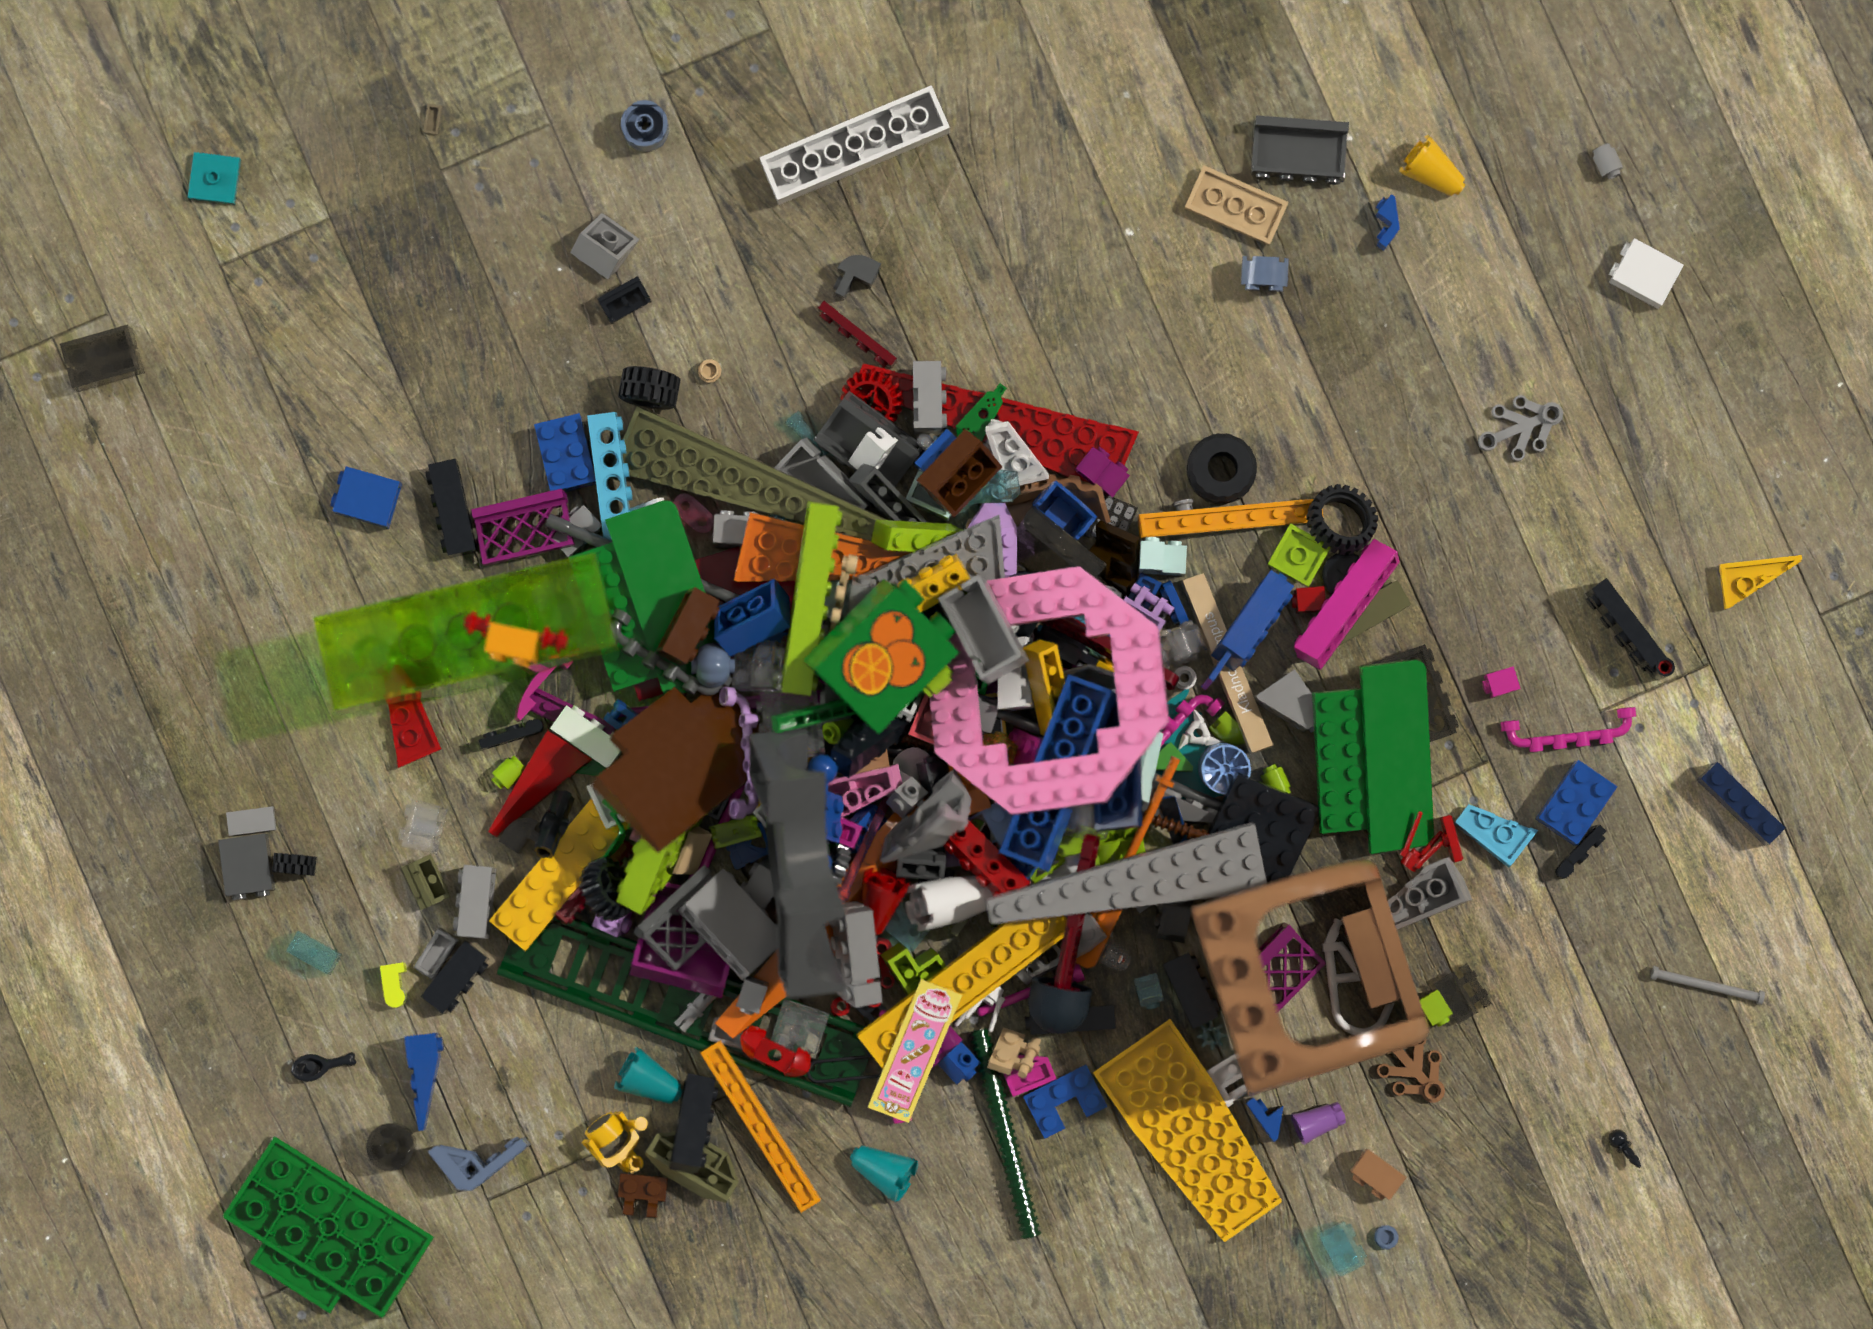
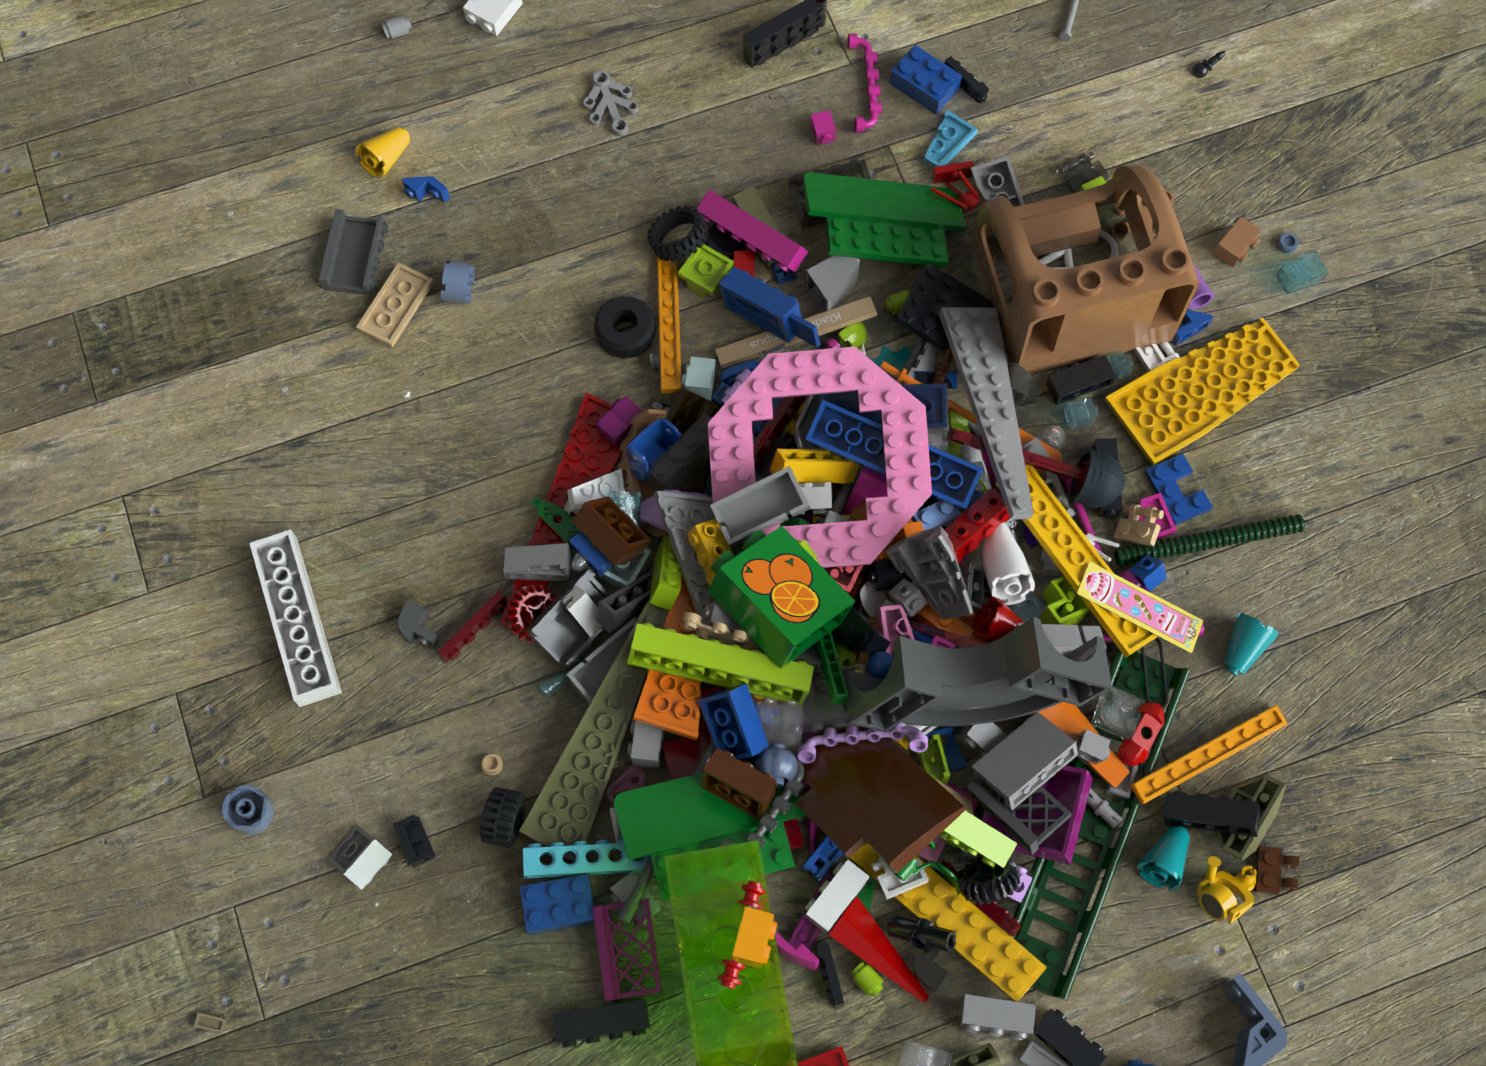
camera: 85 degrees left, 15 degrees down
(1220, 763) = (886, 339): light blue wheel -> none

